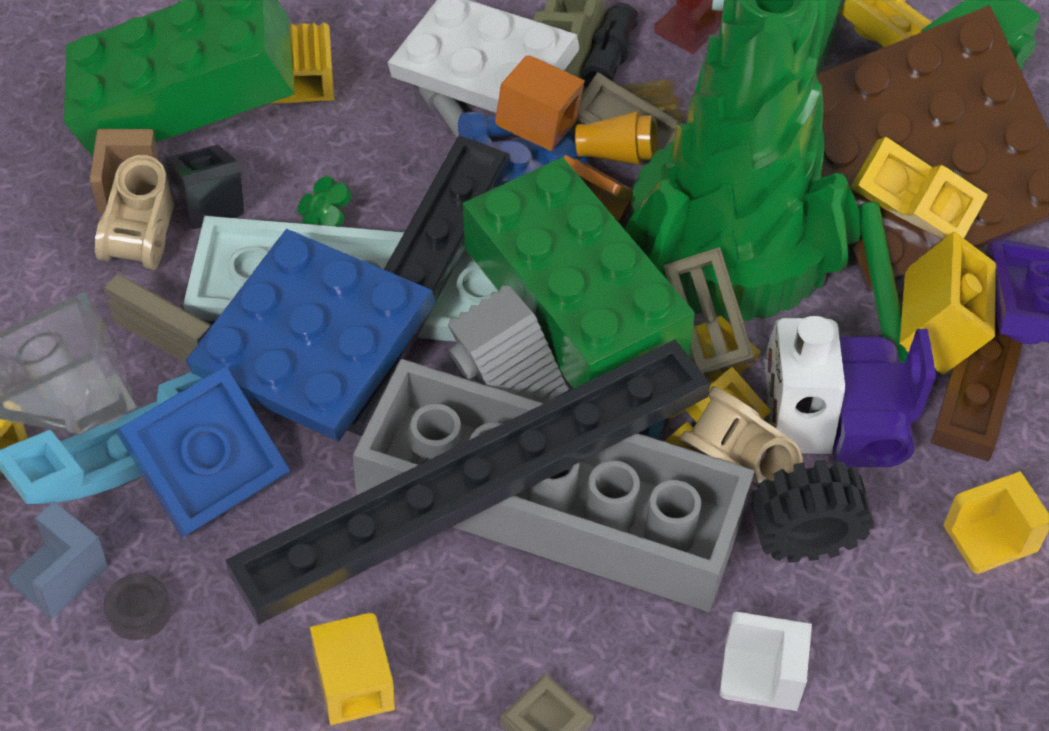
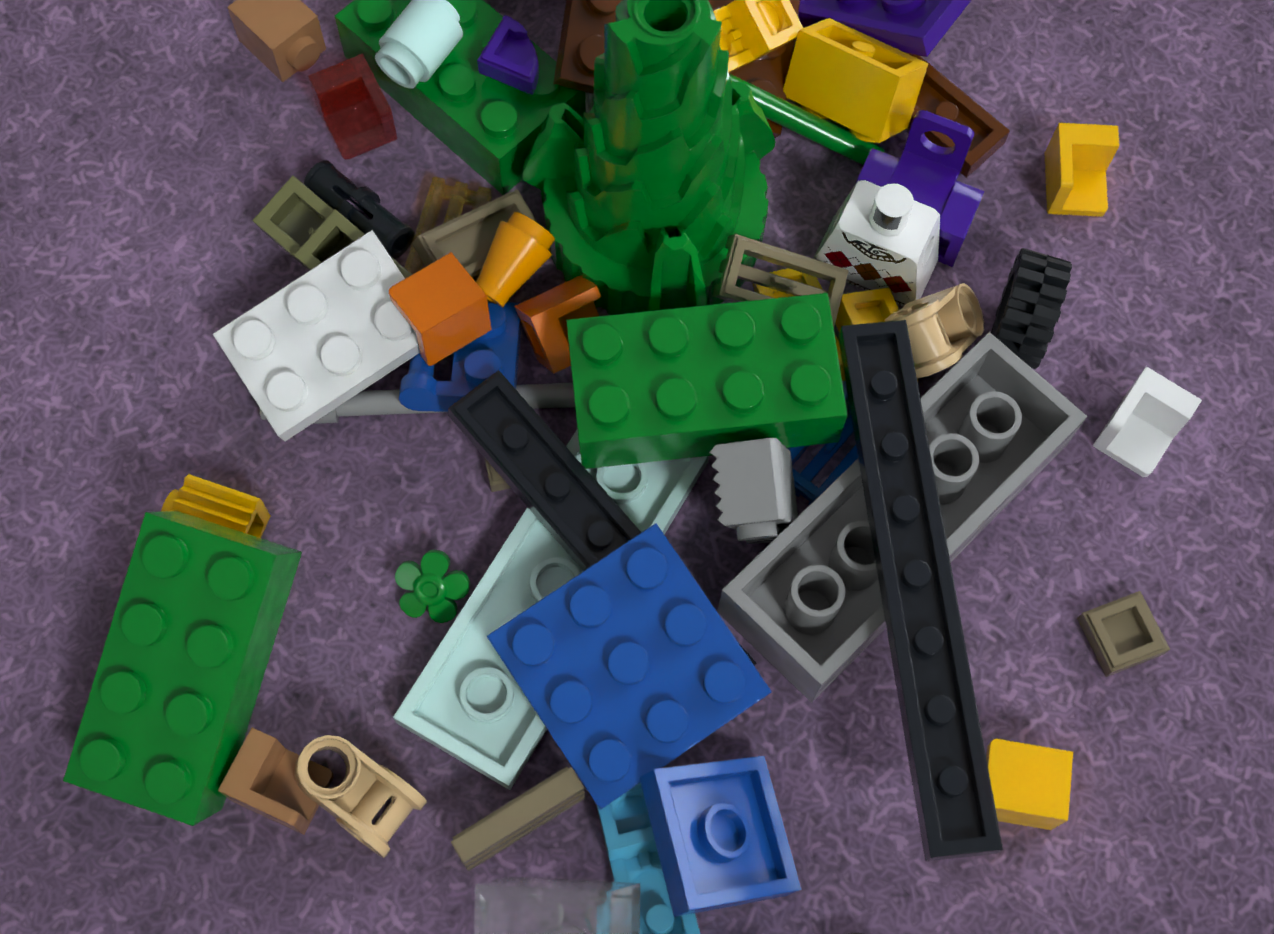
camera: 65 degrees left, 15 degrees up
(208, 183) = (333, 695): black slope -> none

